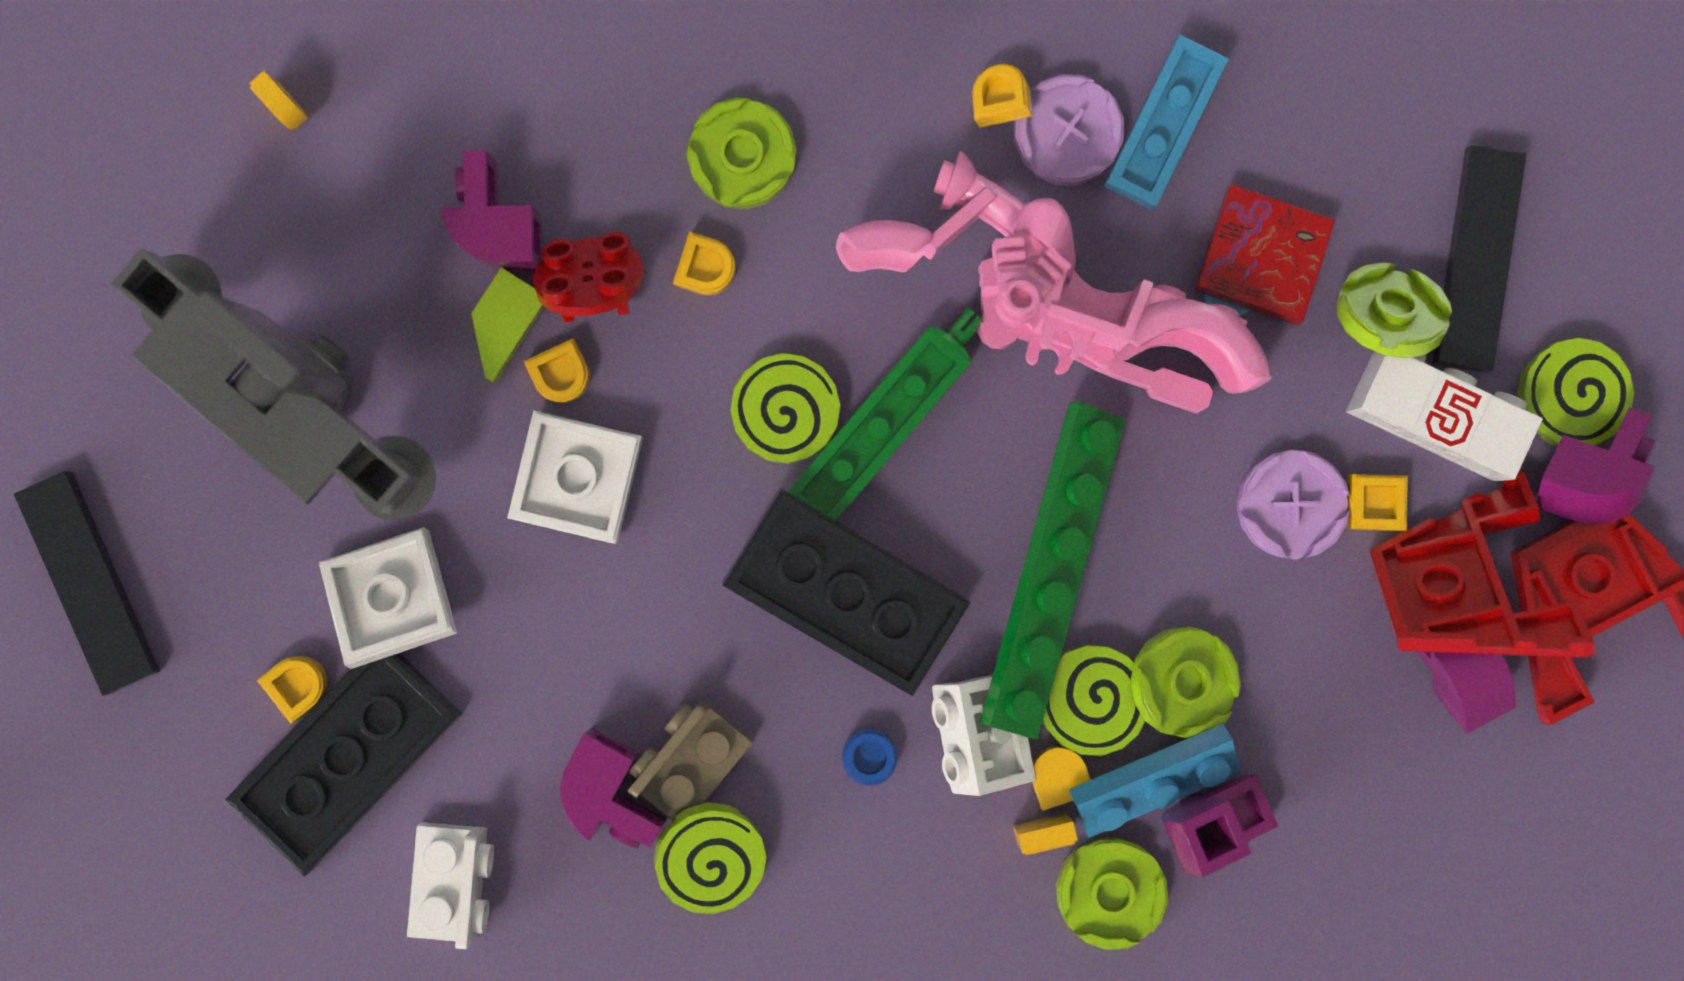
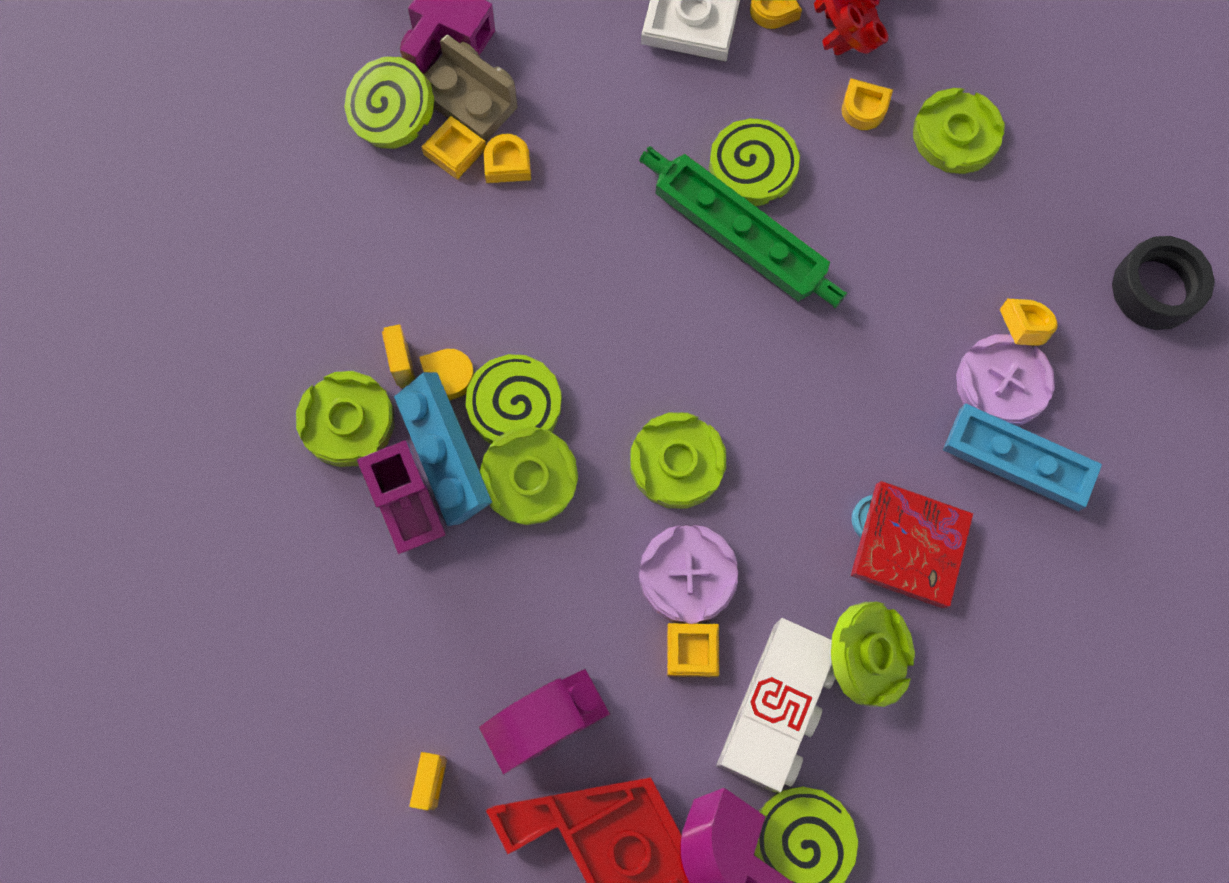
camera: 85 degrees right, 15 degrees down
(763, 776) = (453, 147): none -> yellow tile
(779, 711) = (506, 159): none -> yellow tile
(845, 592) = (605, 200): black tile -> none
(869, 756) = (468, 226): blue tile -> none
(976, 755) = (486, 310): white bracket -> none
(1041, 299) = (869, 331): bright pink piece -> none
(1052, 570) = (626, 360): green plate -> none
(1162, 512) = (677, 460): none -> lime tile
(1450, 596) = (620, 698): red wing -> none
(1480, 256) = (926, 745): black tile -> none
(1520, 785) = (428, 781): none -> yellow tile

